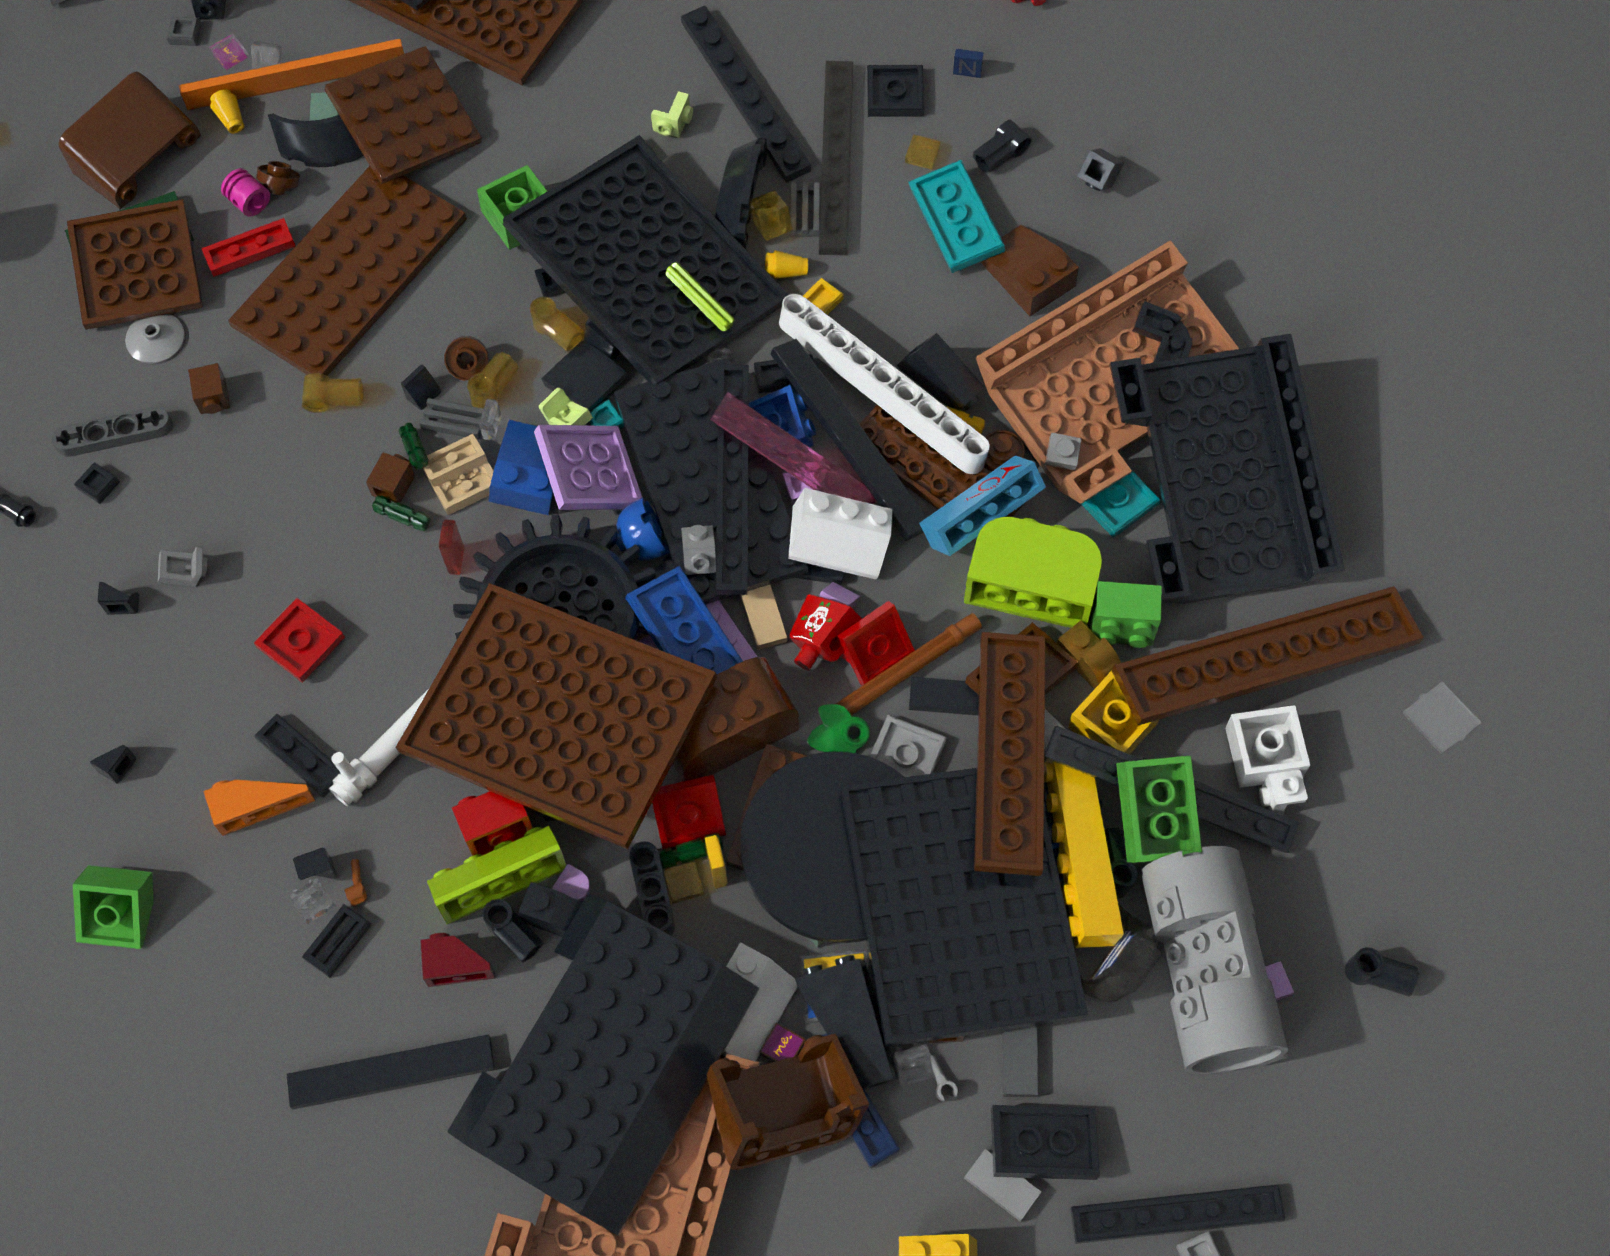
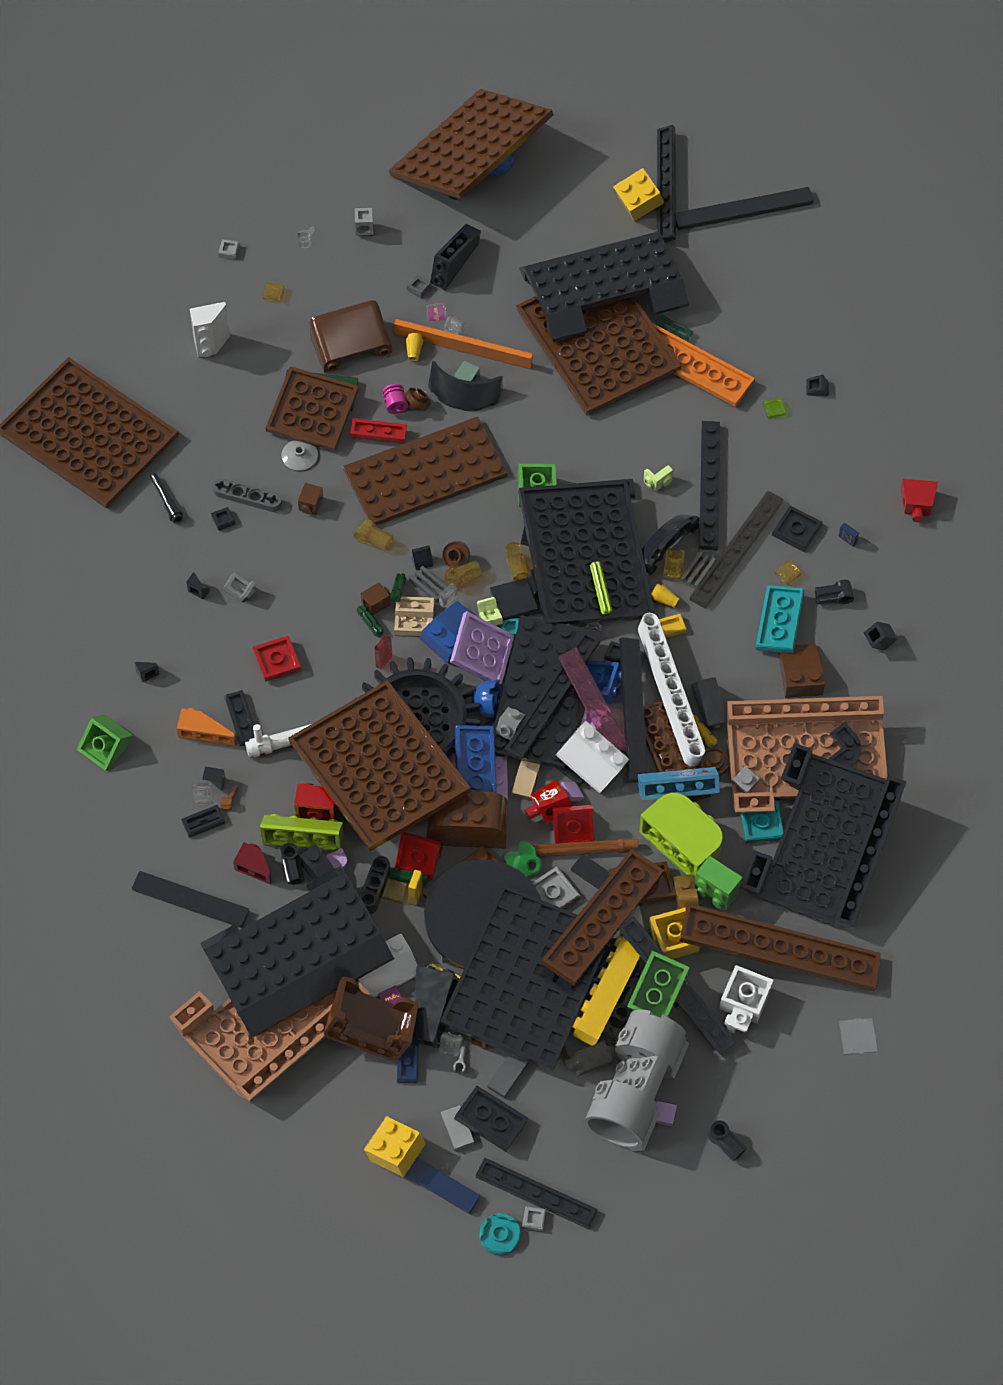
camera: 30 degrees right, 5 degrees down
(403, 114) = (506, 399): reddish brown plate -> none

